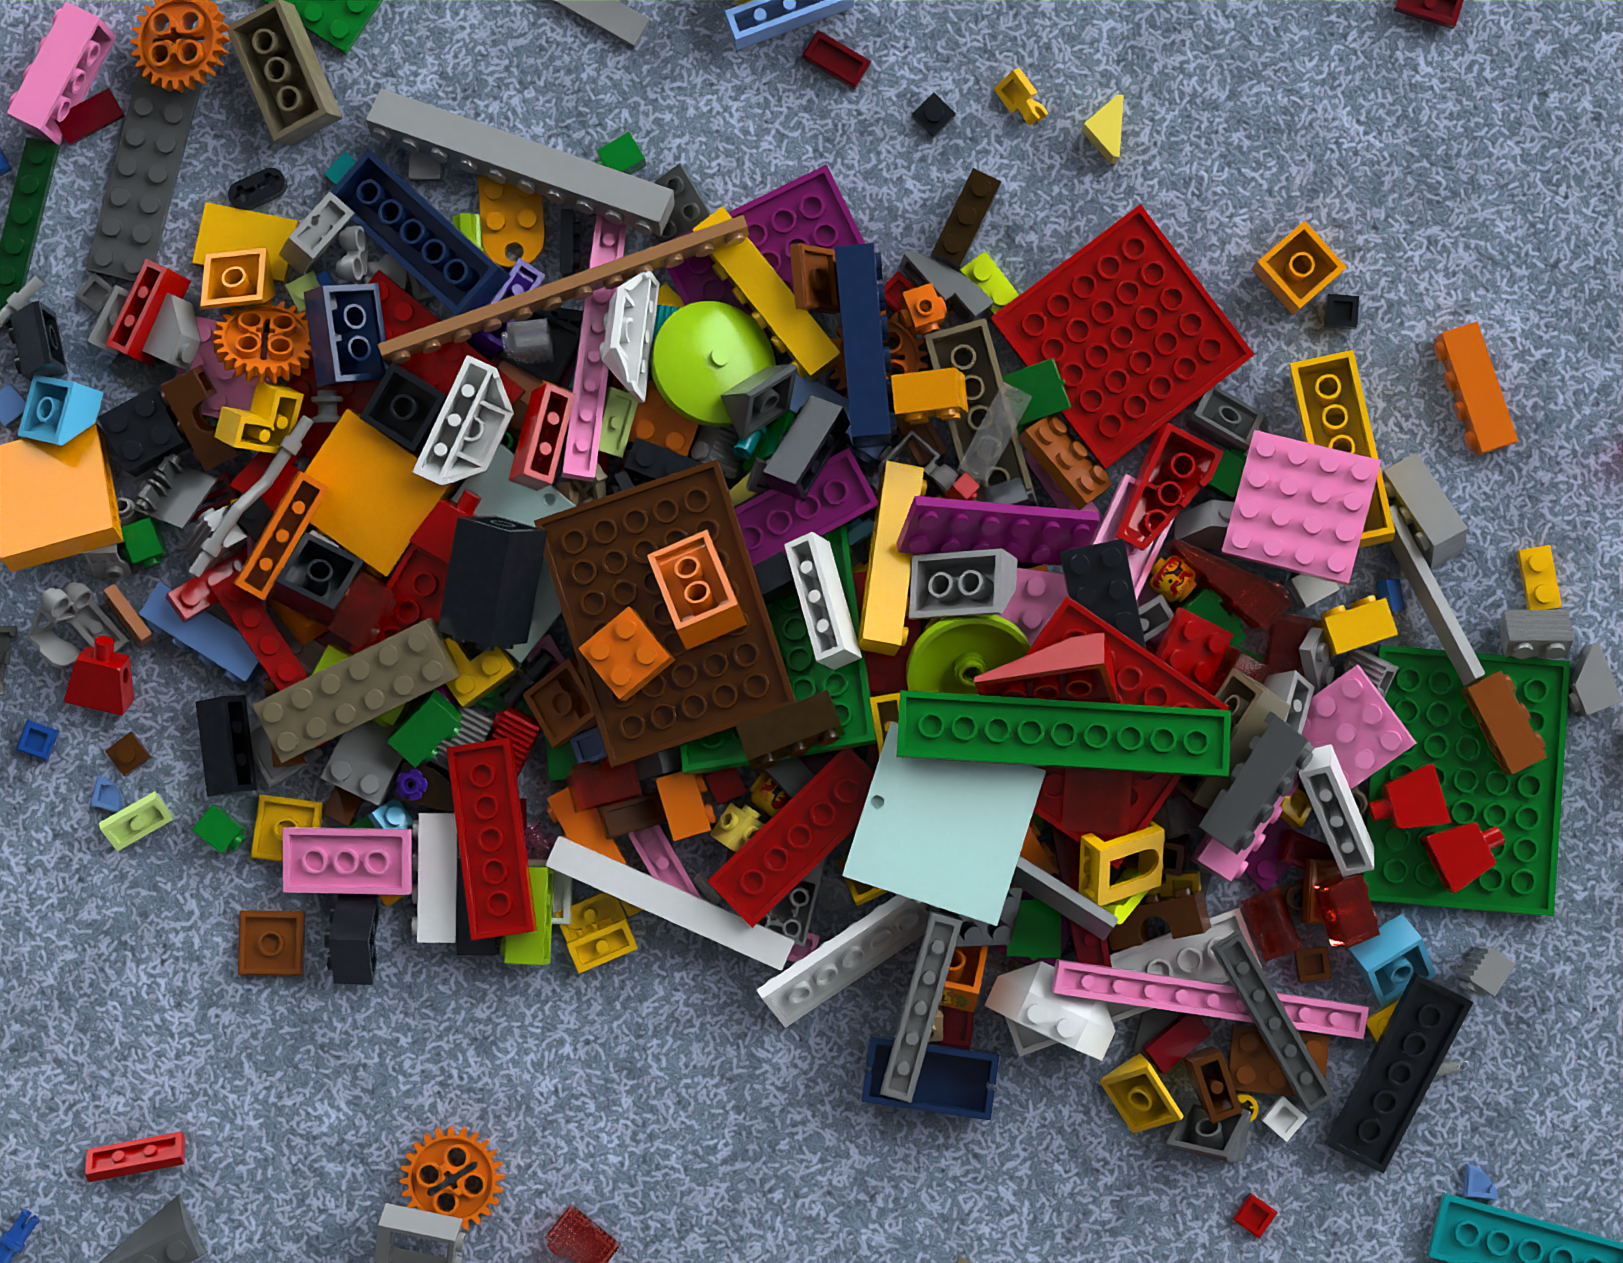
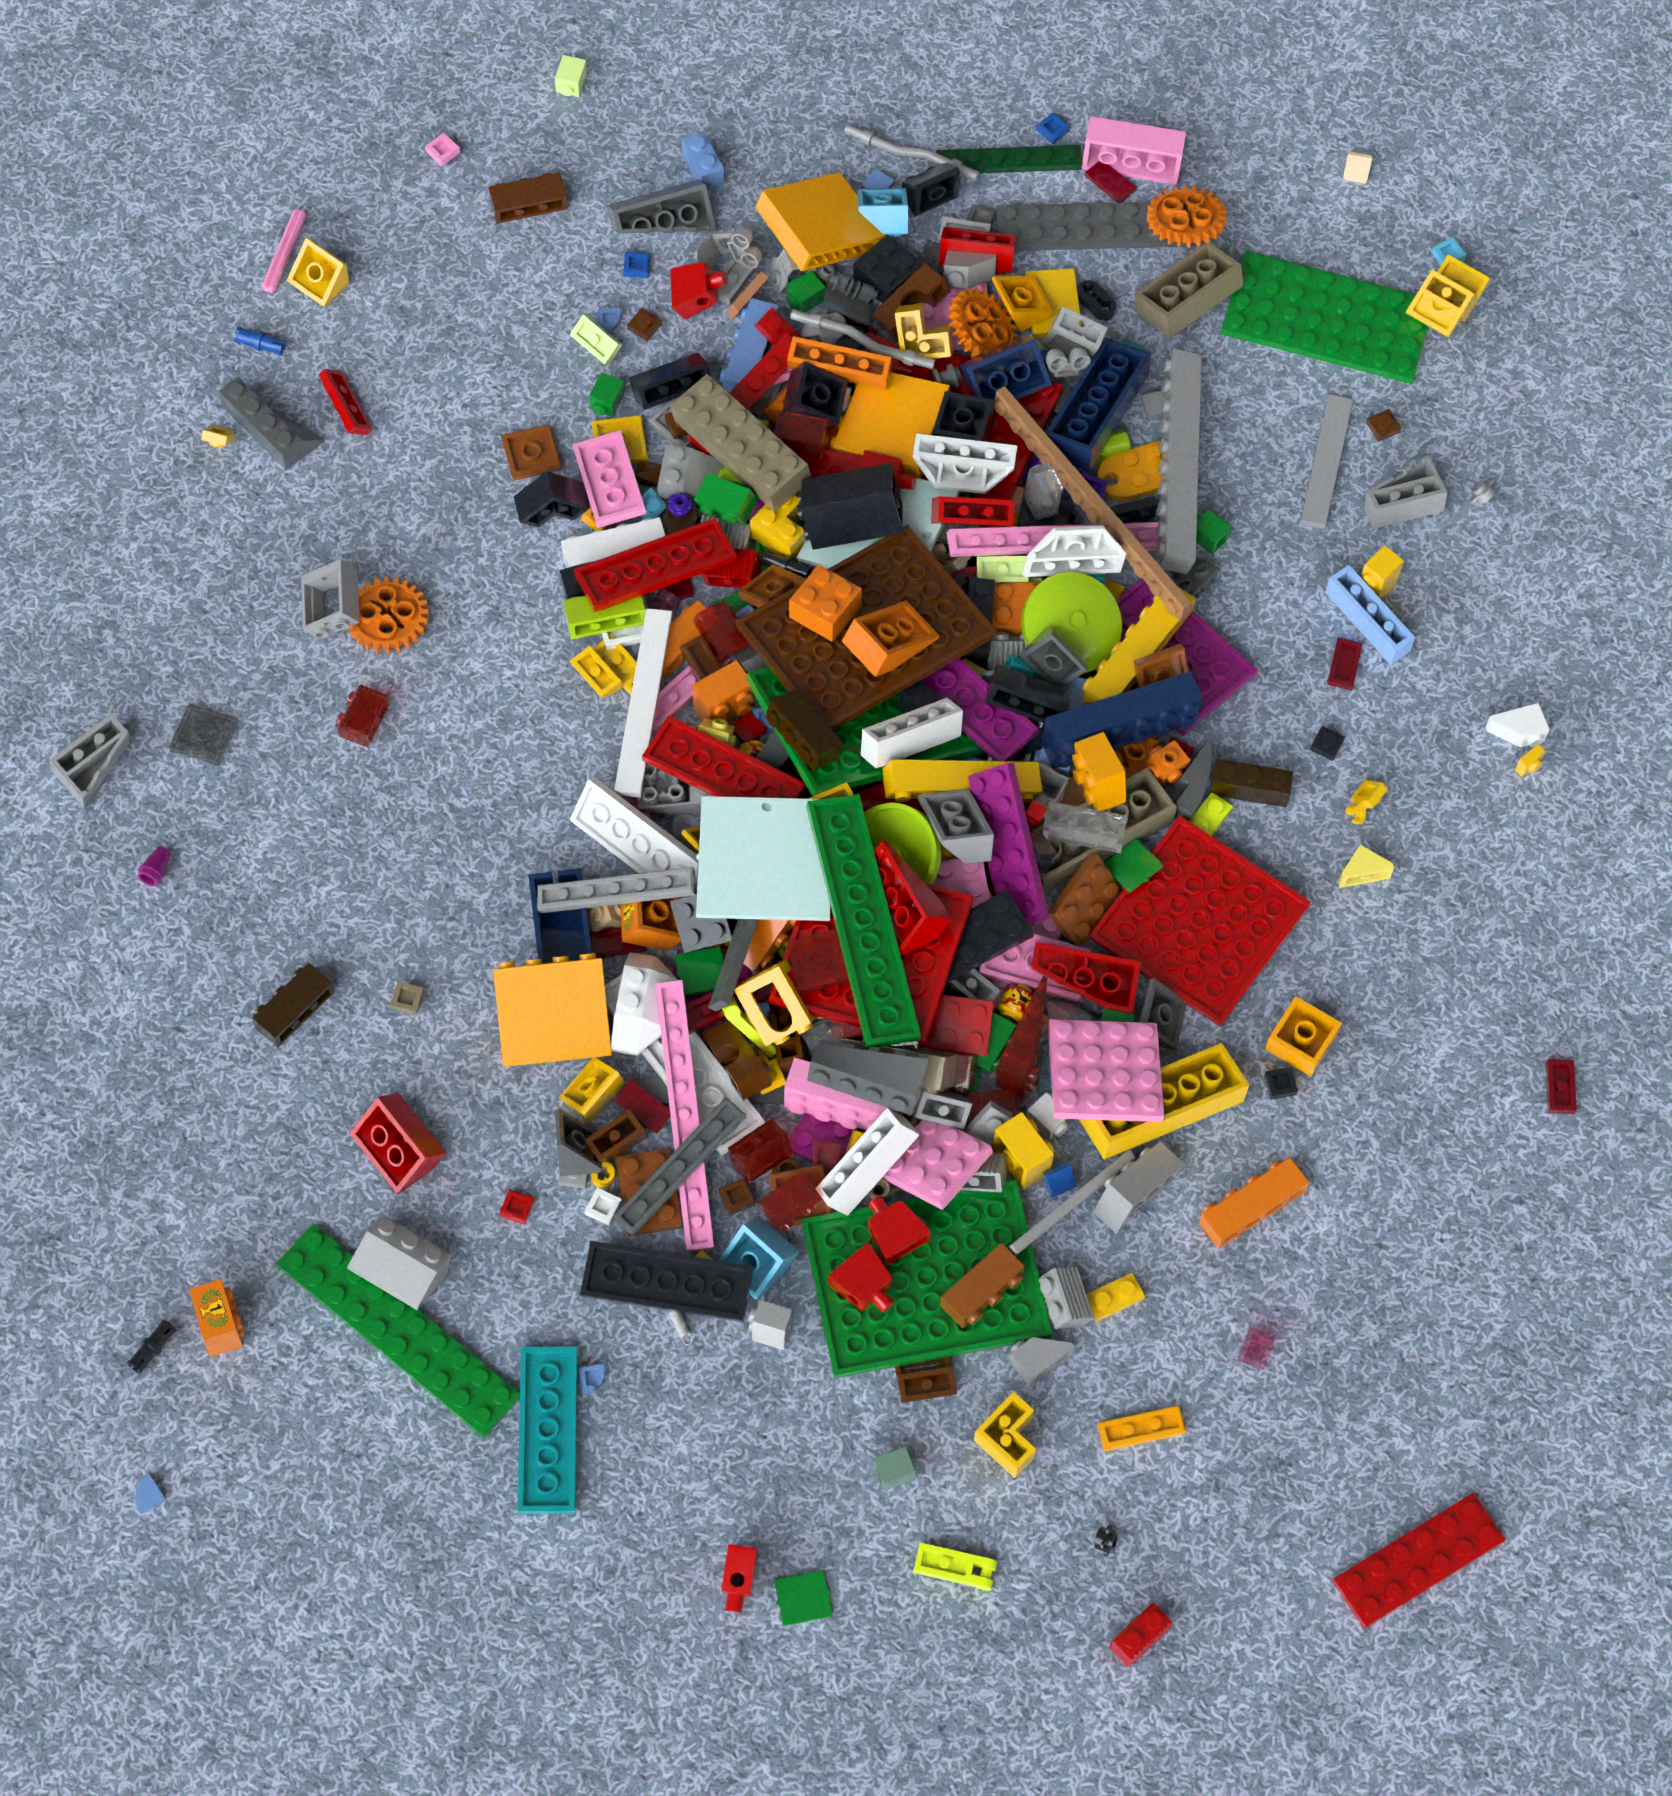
camera: 70 degrees right, 20 degrees down
(1041, 1118) = (552, 1010): none -> light orange brick
(1583, 815) = (926, 1381): none -> reddish brown slope

